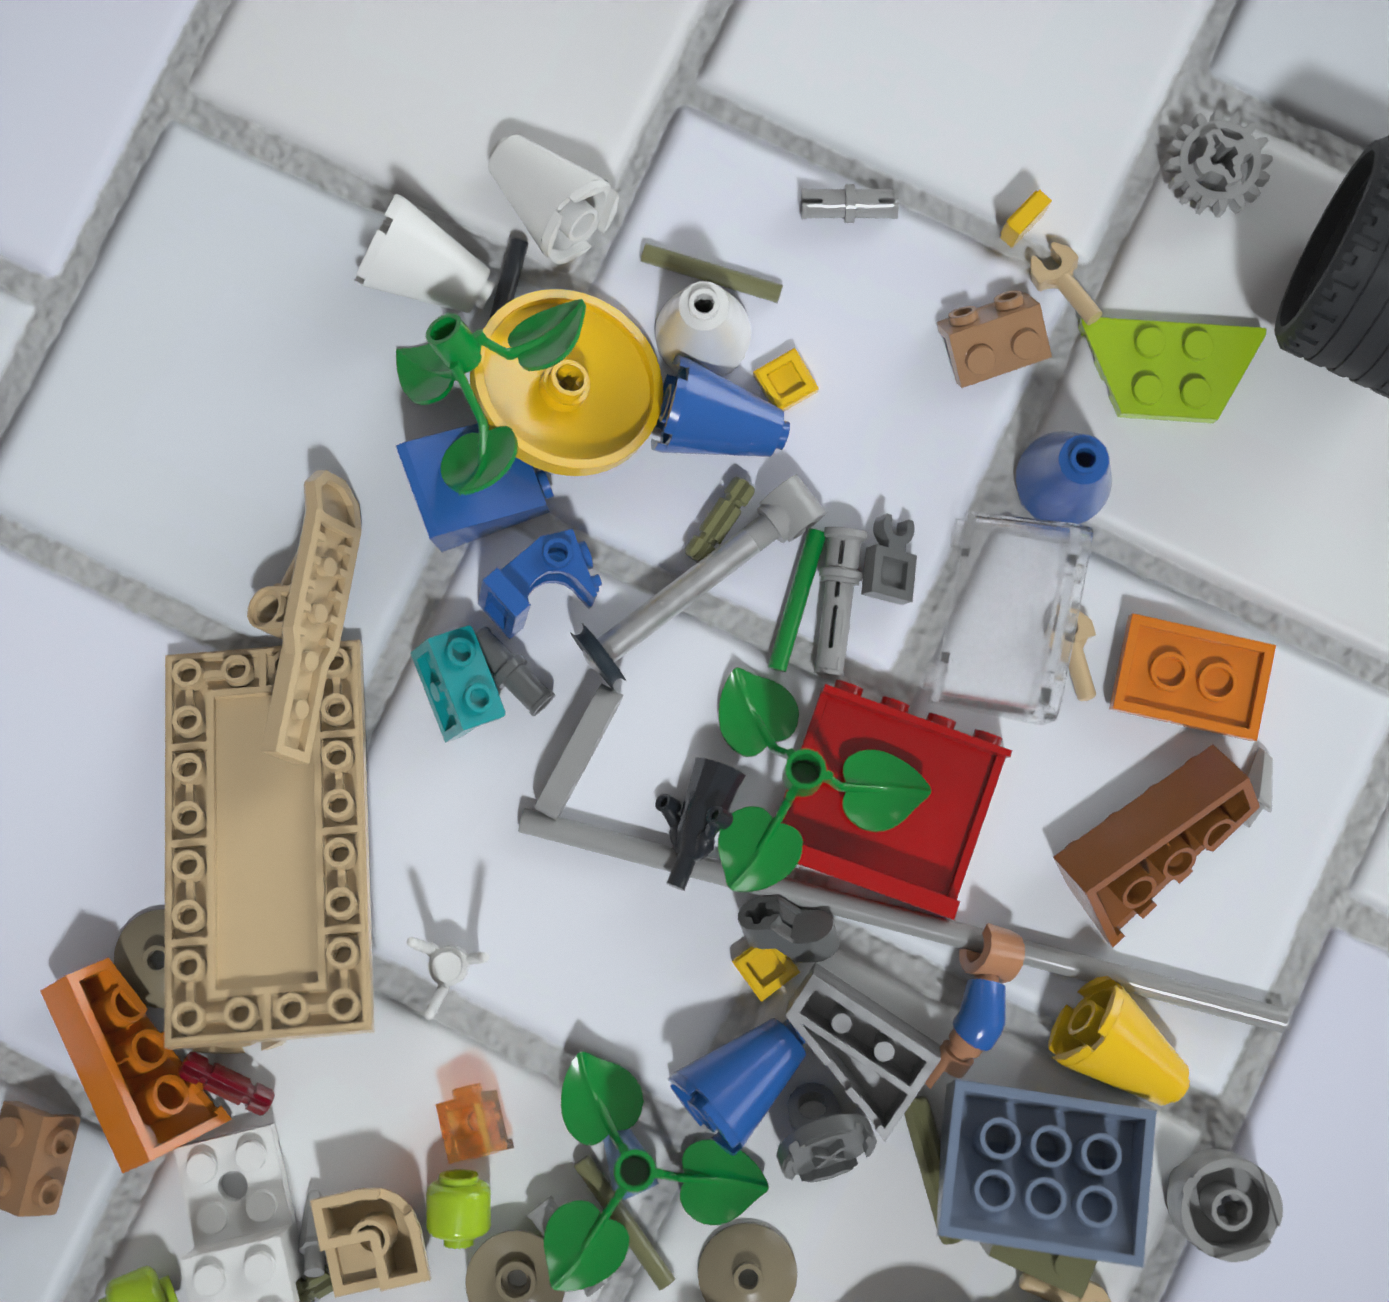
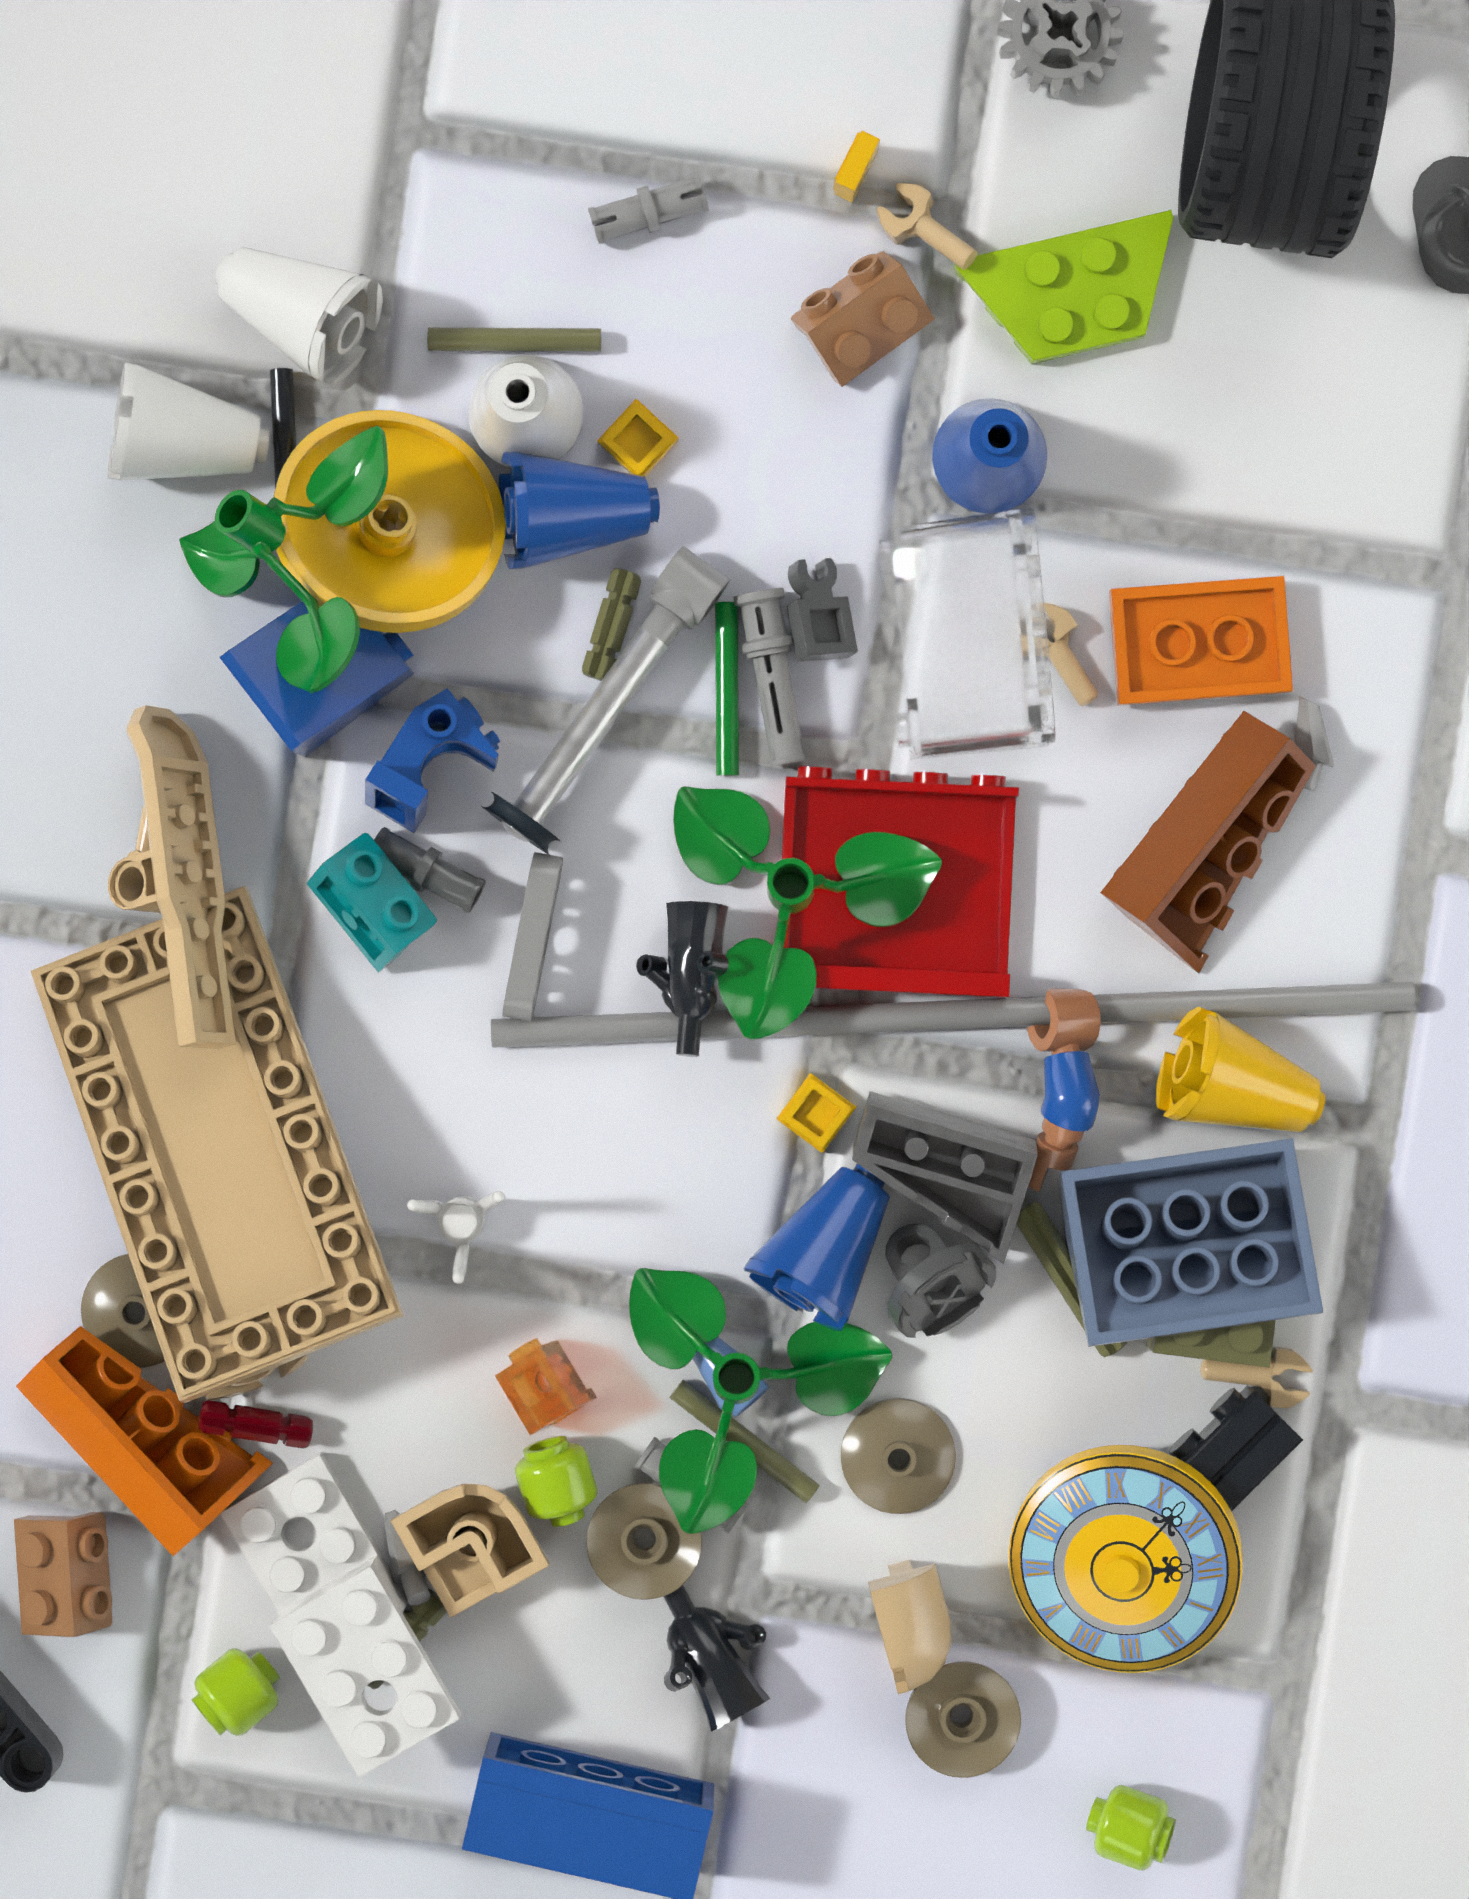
camera: 20 degrees left, 5 degrees up
(797, 933) = (828, 1063): dark grey piece -> none
(1248, 1218) = (1432, 1224): light grey brick -> none

